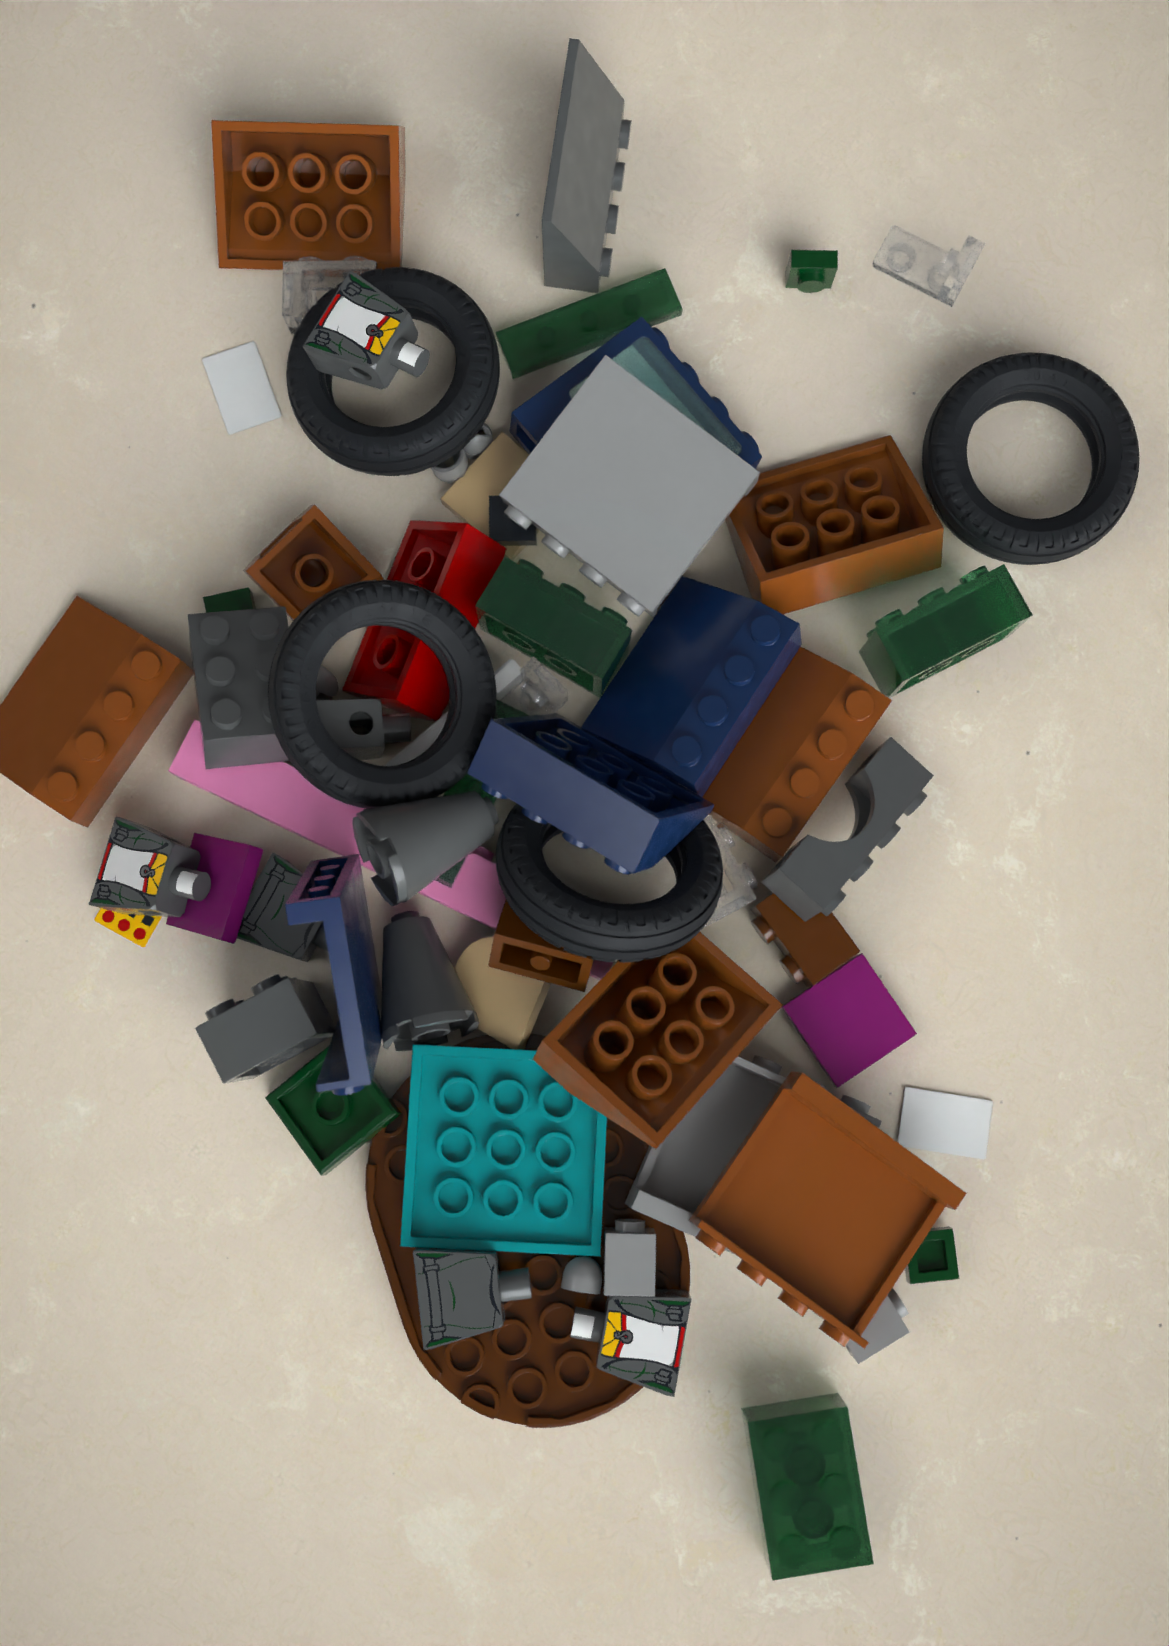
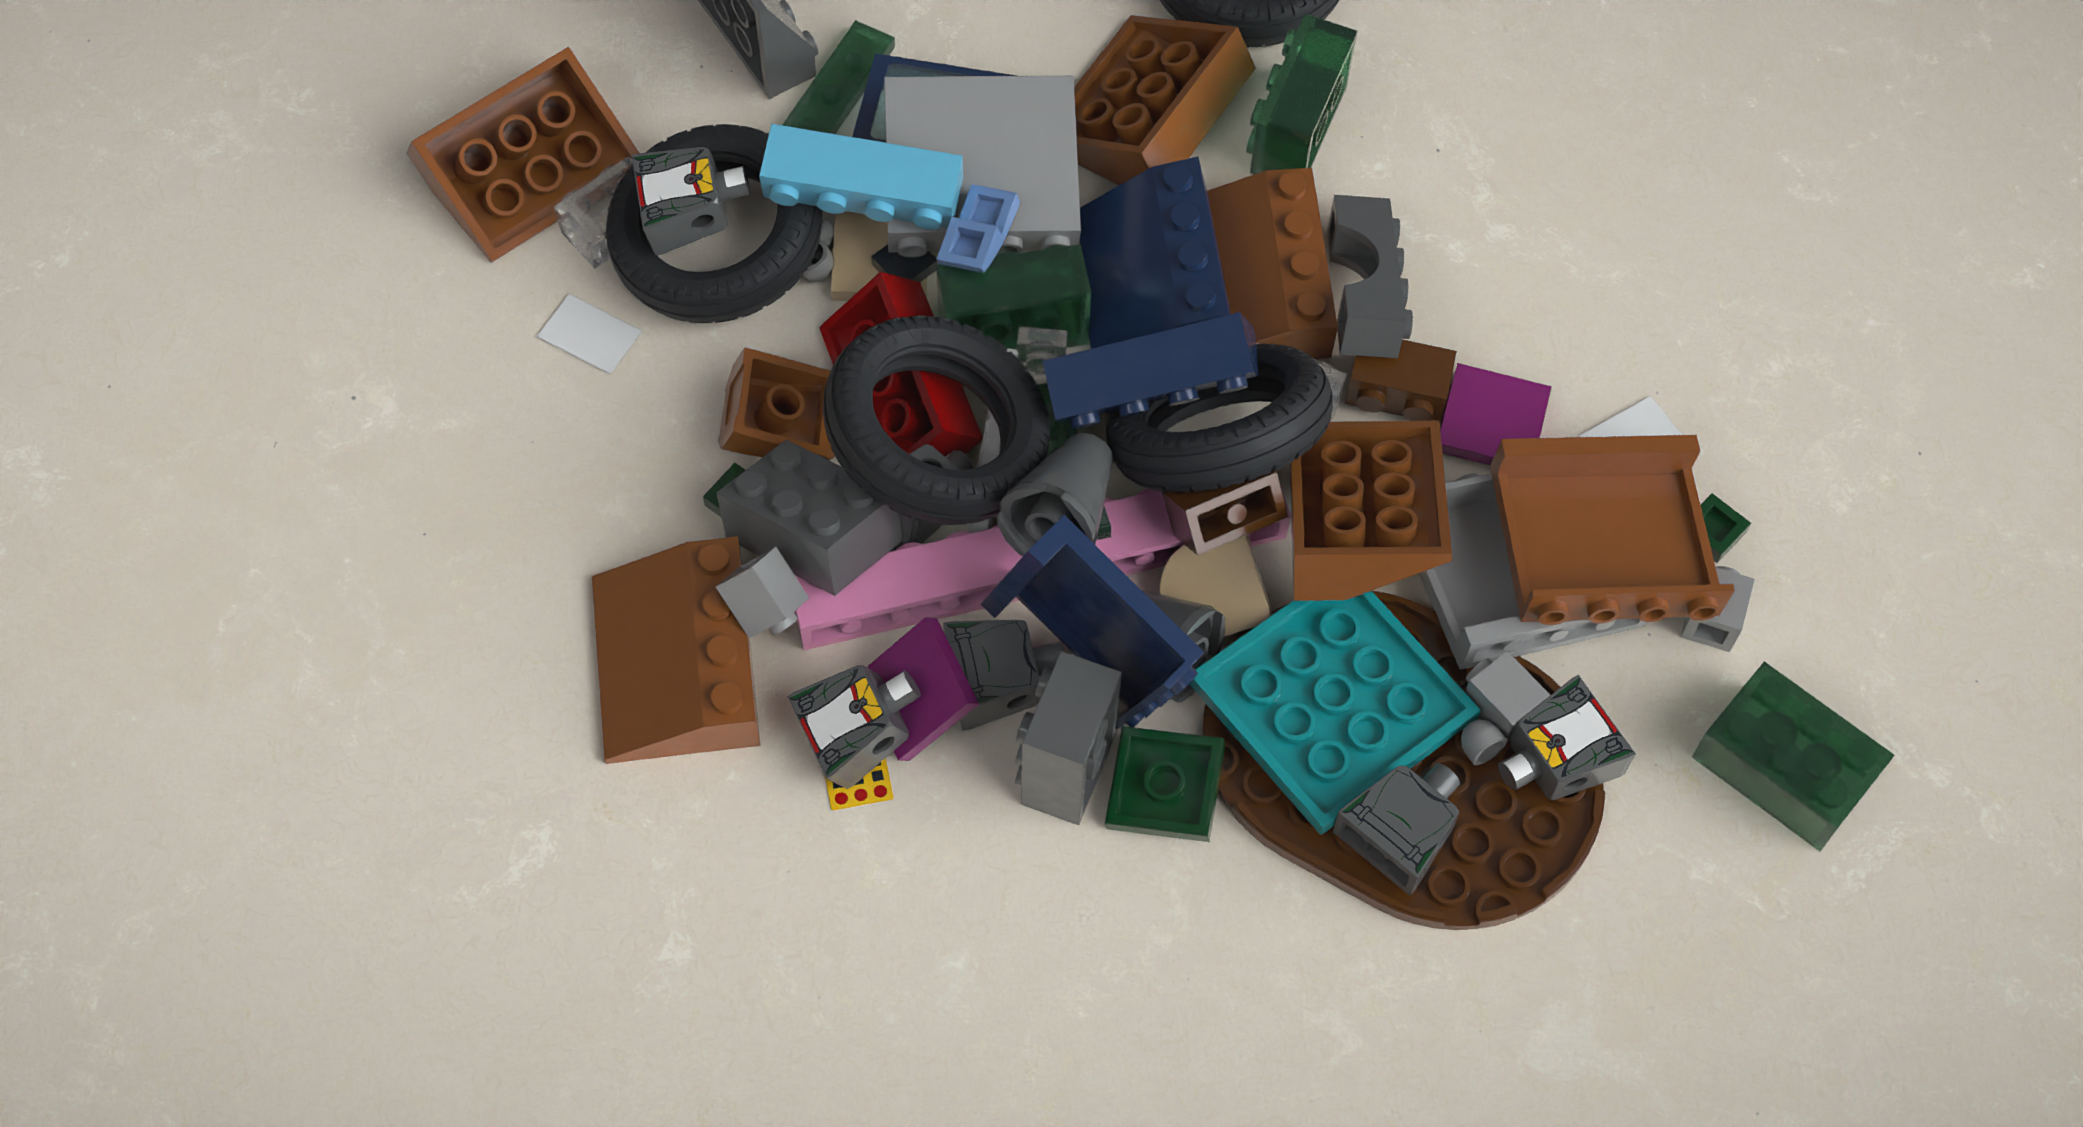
camera: 40 degrees left, 20 degrees down
(152, 726) = (763, 594): none -> light grey brick
(507, 433) = (861, 177): none -> medium azure brick
(563, 555) = (980, 230): none -> medium blue slope

